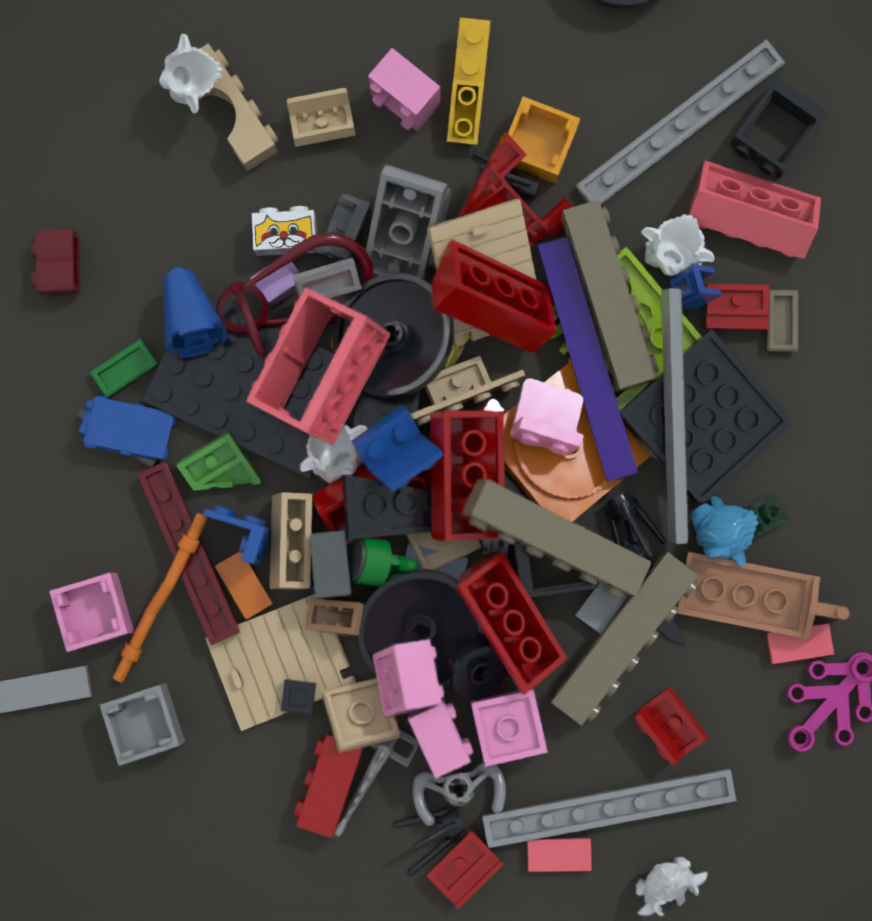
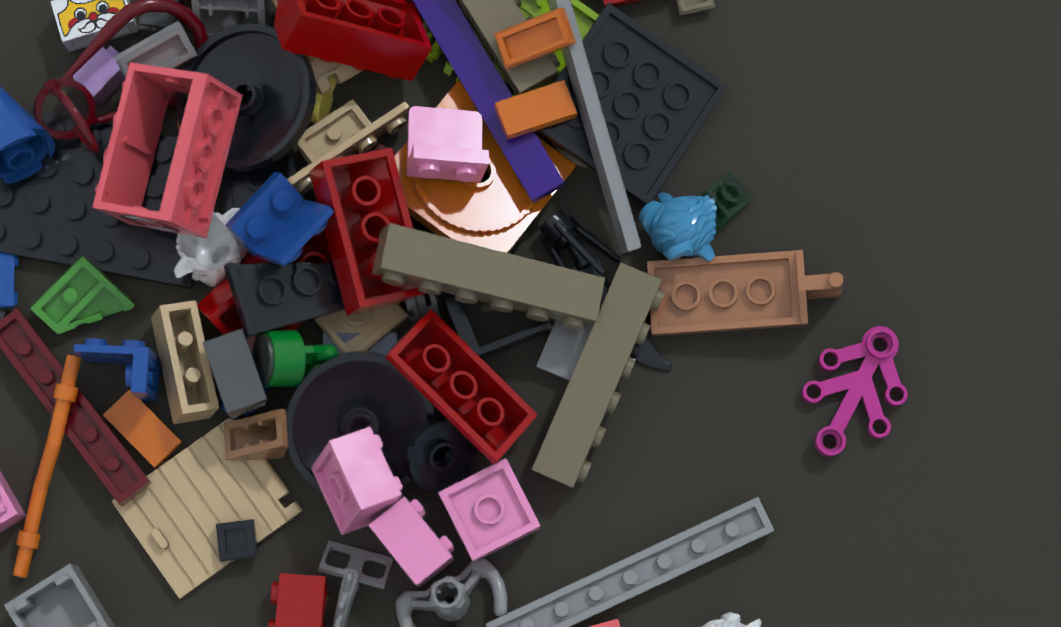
camera: 20 degrees left, 5 degrees down
(358, 716) = (312, 543): tan tile -> none
(629, 406) = (535, 109): none -> orange tile
(644, 348) = (535, 38): none -> orange tile
(670, 726) = (676, 464): red bracket -> none
(790, 648) = (792, 342): coral tile -> none

